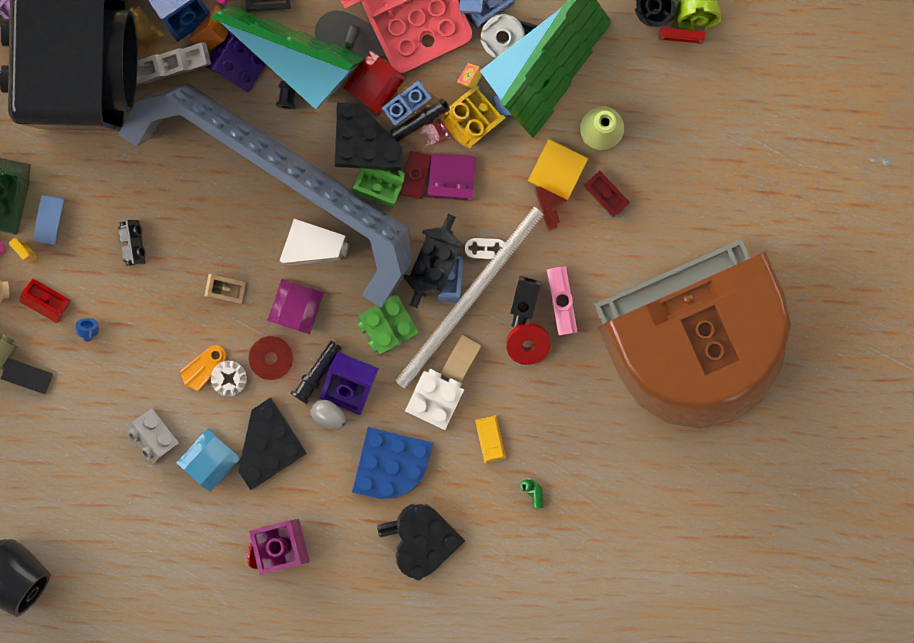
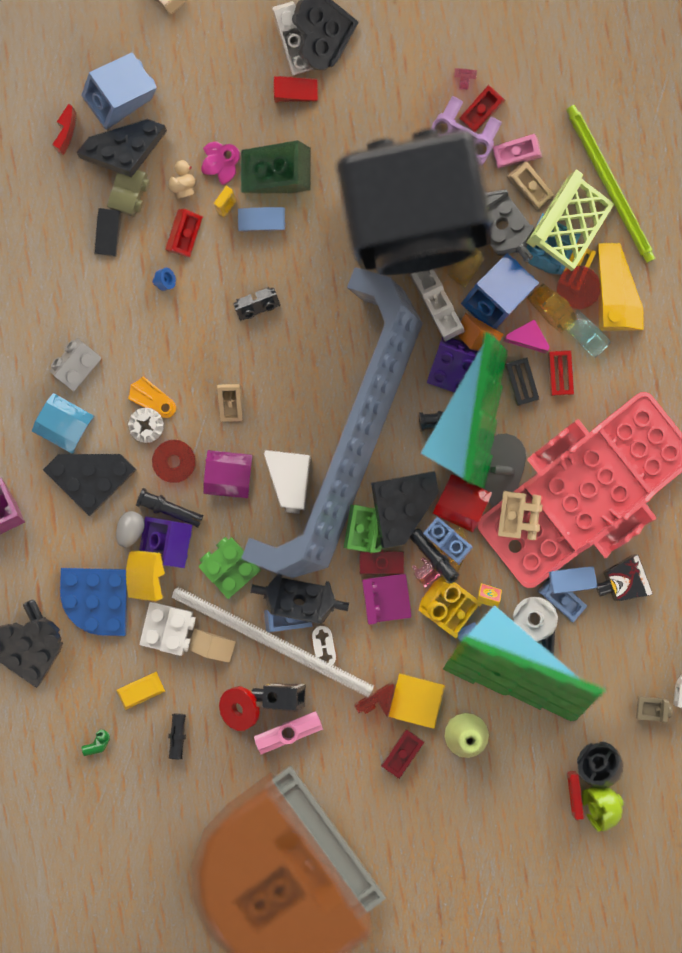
camera: 85 degrees right, 0 degrees up
(377, 409) = (142, 575): none -> yellow slope
(396, 35) = (512, 515): none -> tan plate
(542, 411) = (177, 736): none -> black pin

